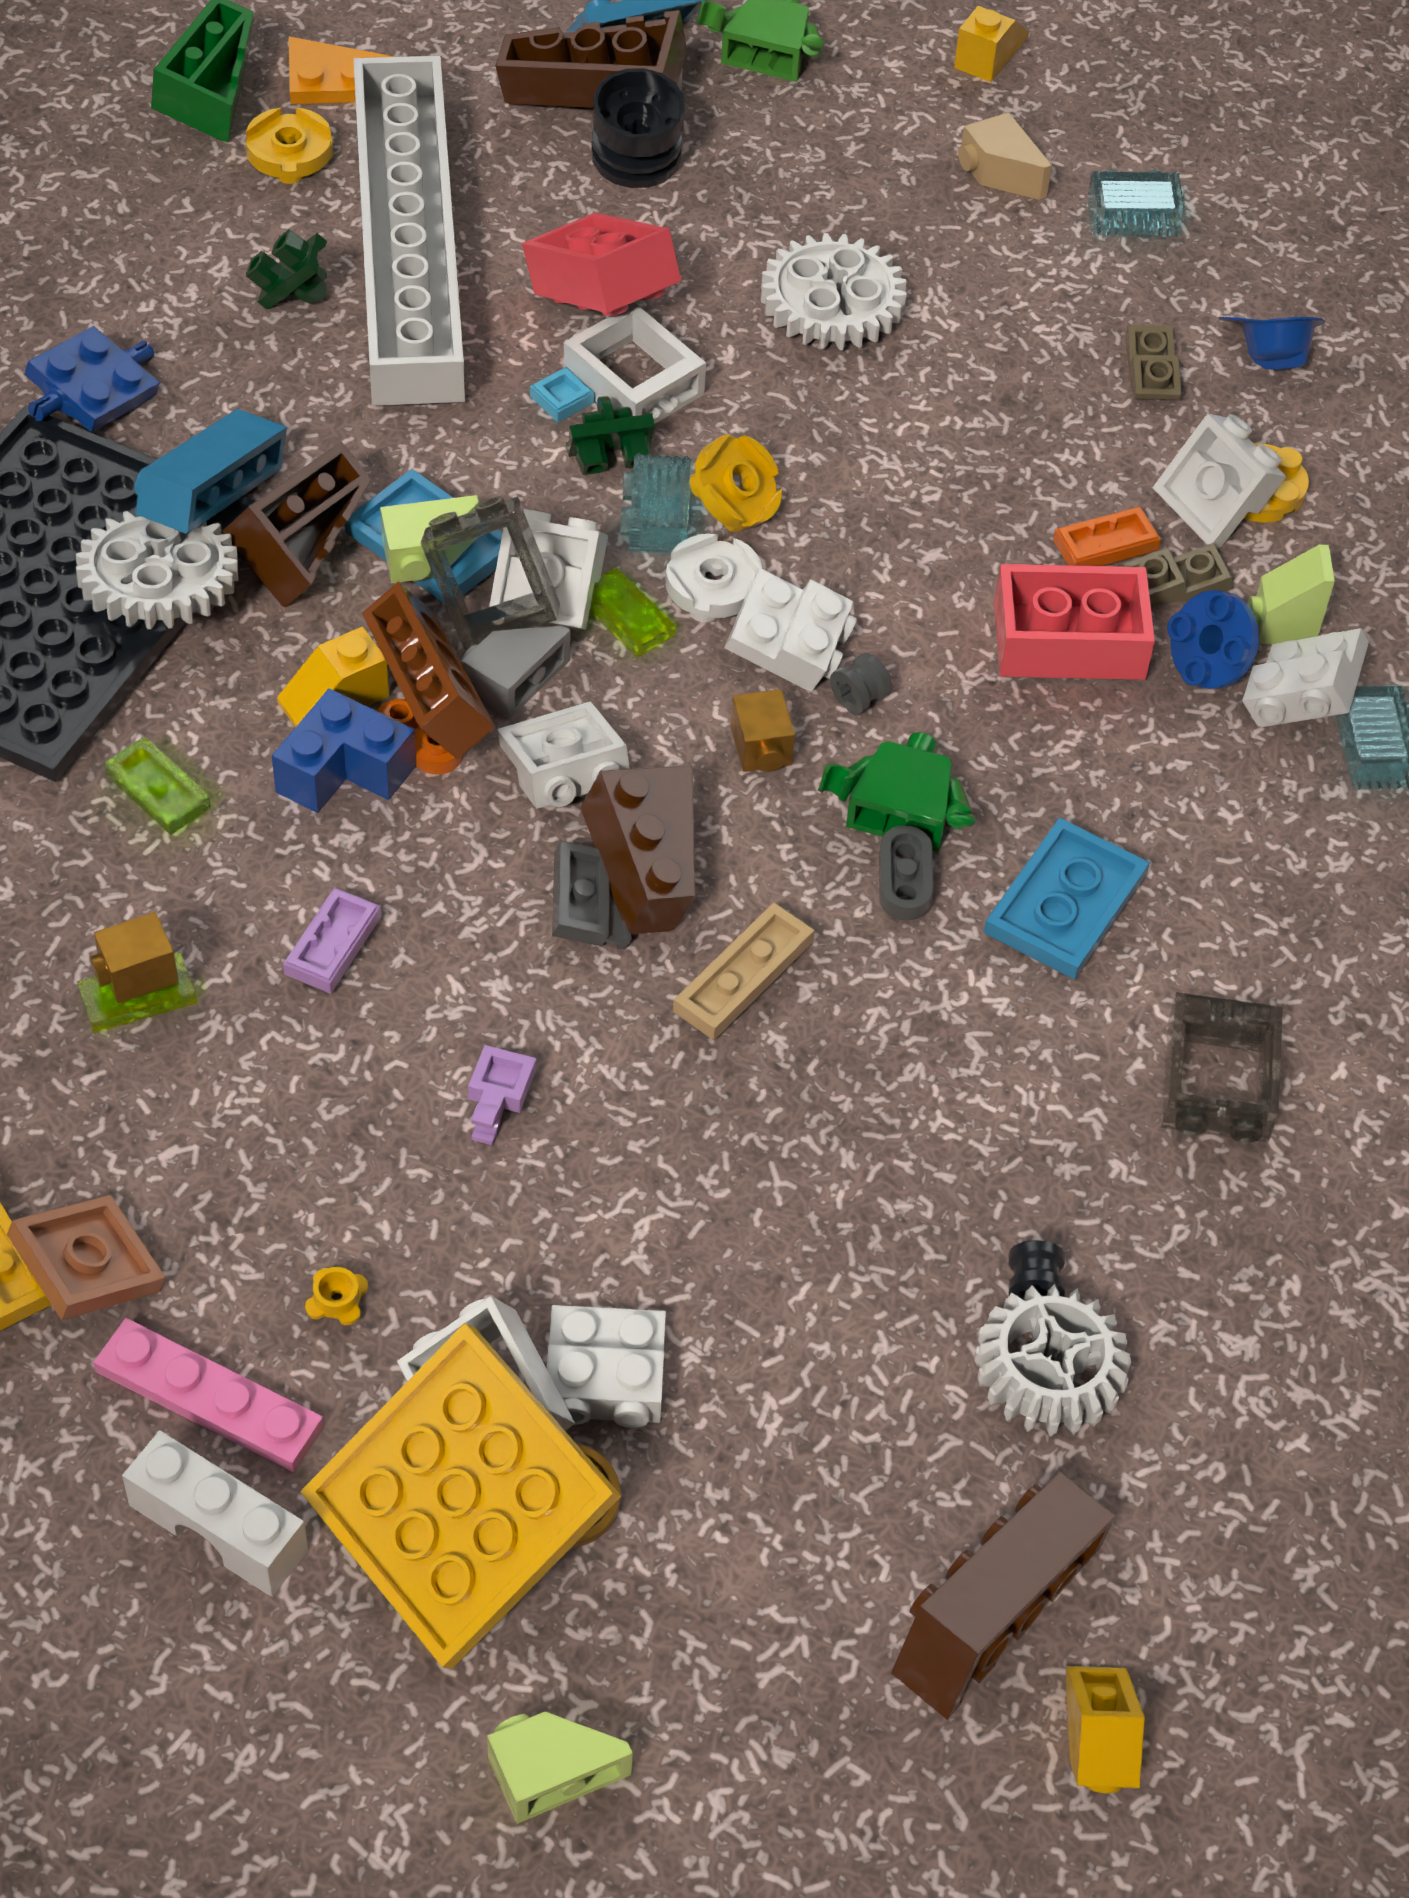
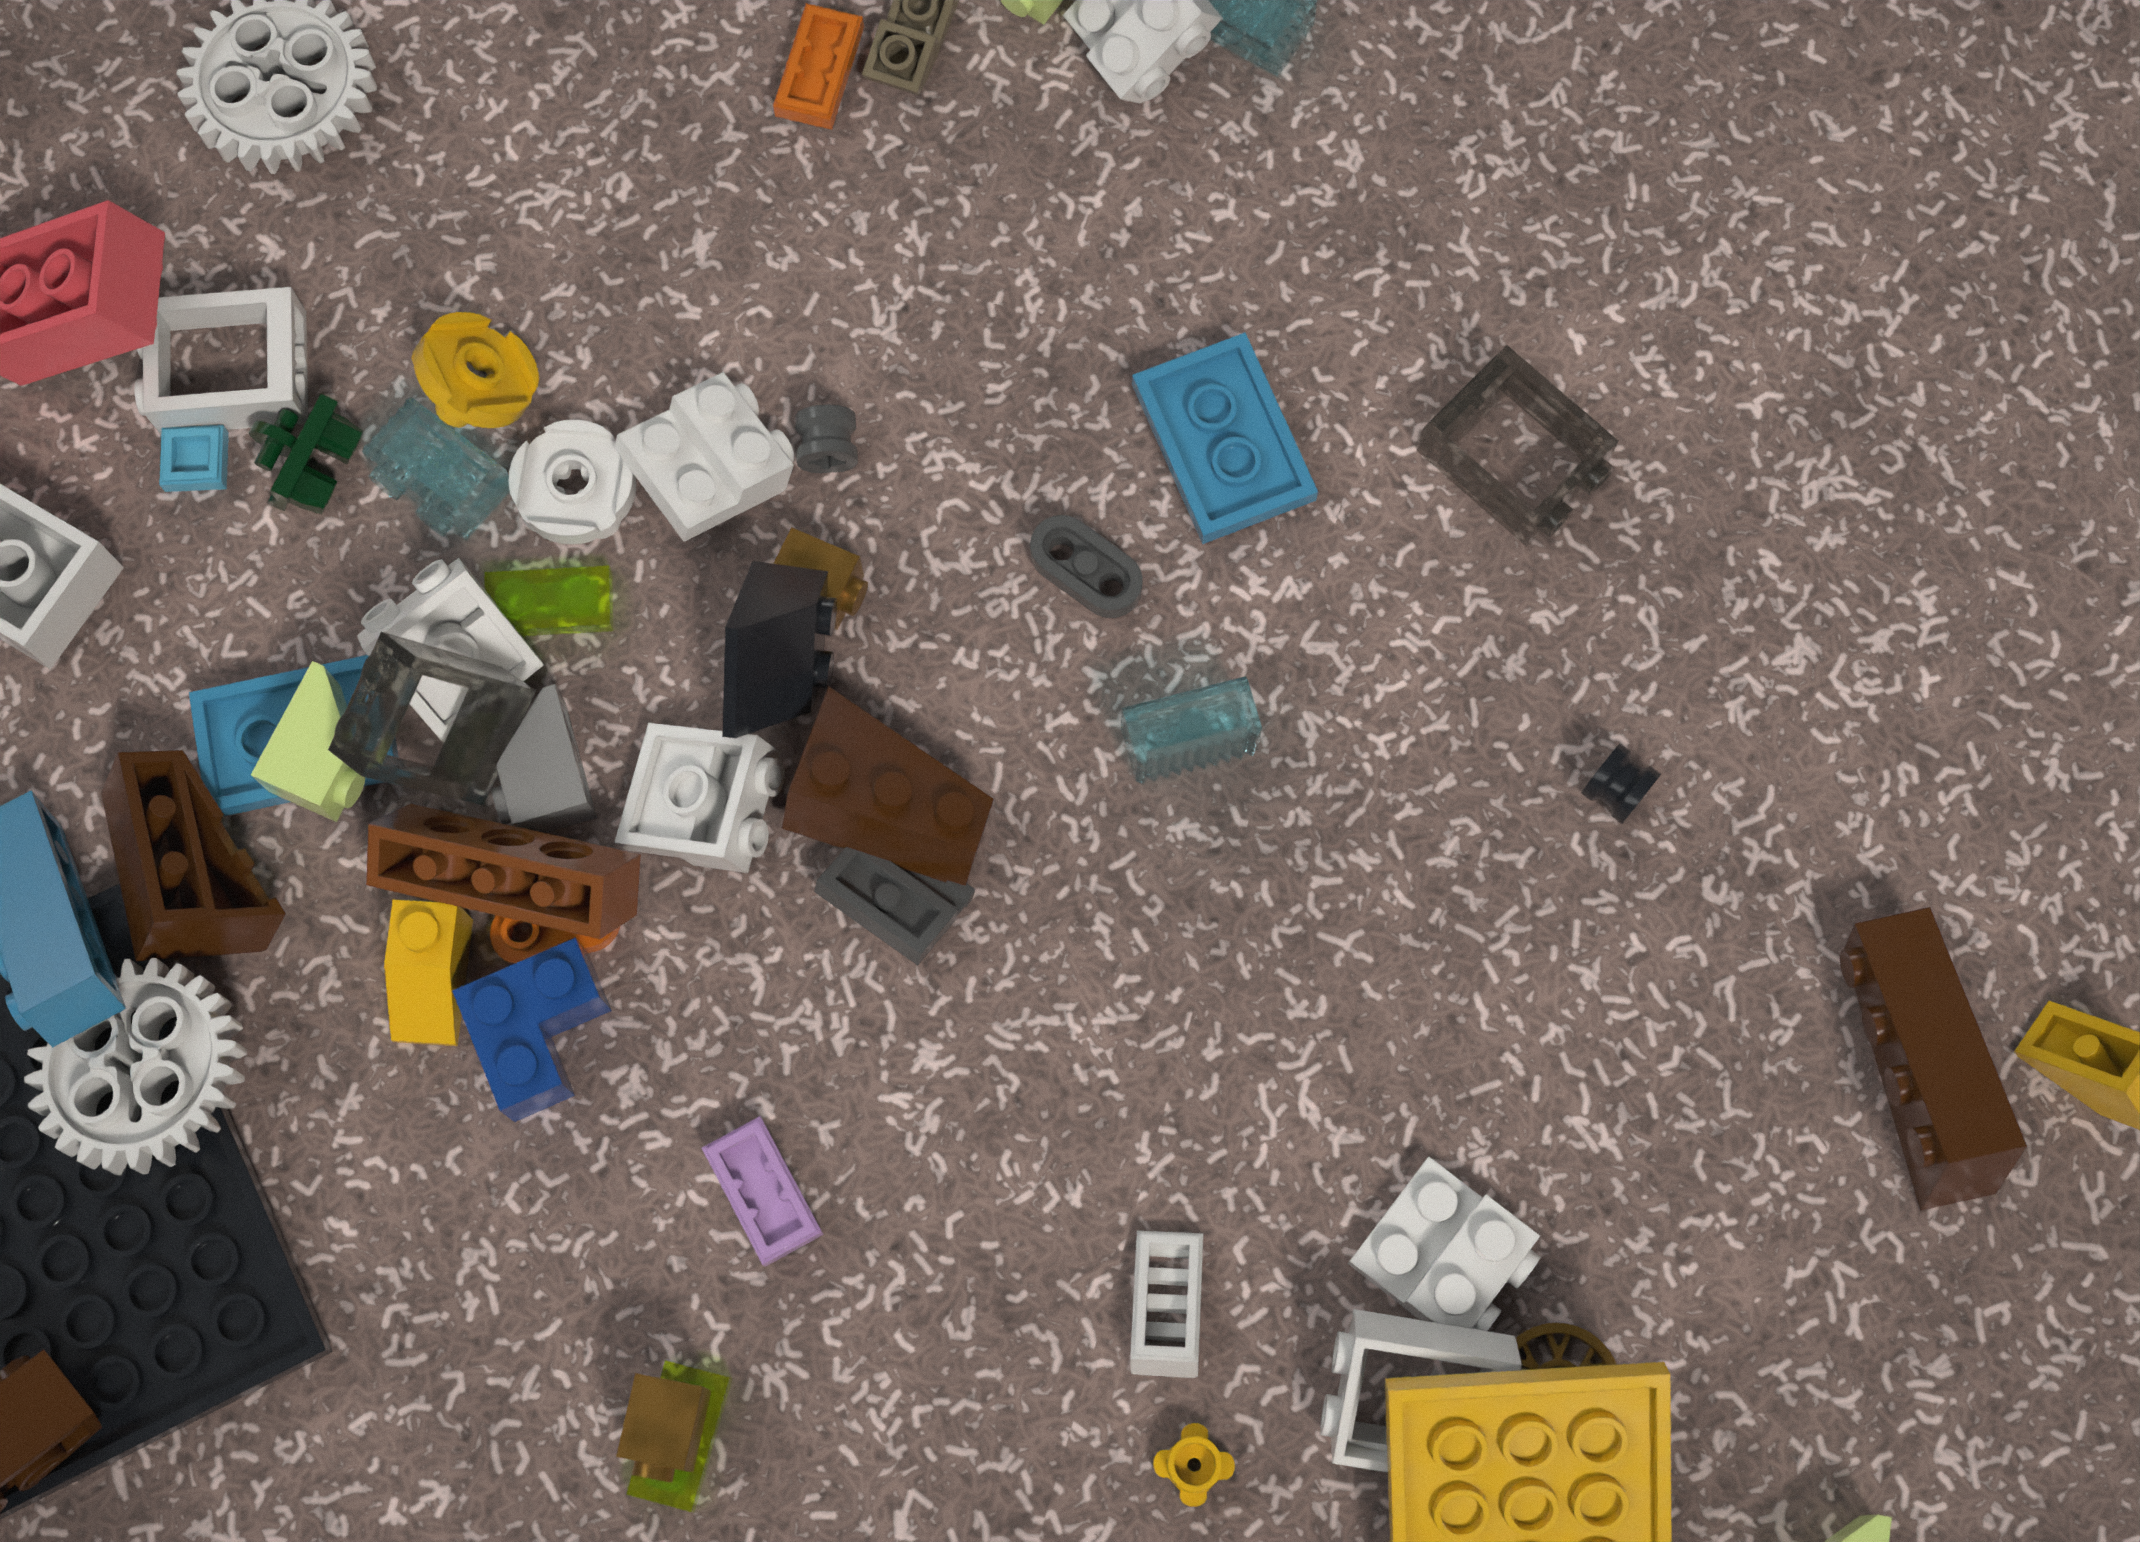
camera: 50 degrees left, 20 degrees up
(157, 785) = (424, 1247): clear neon green plate -> none
(408, 1237) = (1166, 1359): none -> white slope
(498, 1084) = (1060, 1139): lavender plate -> none
(689, 716) = (776, 647): none -> black slope
(743, 971) = (1092, 806): tan plate -> none
(842, 986) = (1191, 729): none -> clear light blue brick
(901, 789) = (996, 495): green torso -> none
(1042, 1386) = (1744, 842): white gear -> none
(1073, 622) = (910, 181): coral brick -> none
(1213, 639) = (1034, 68): blue plate -> none

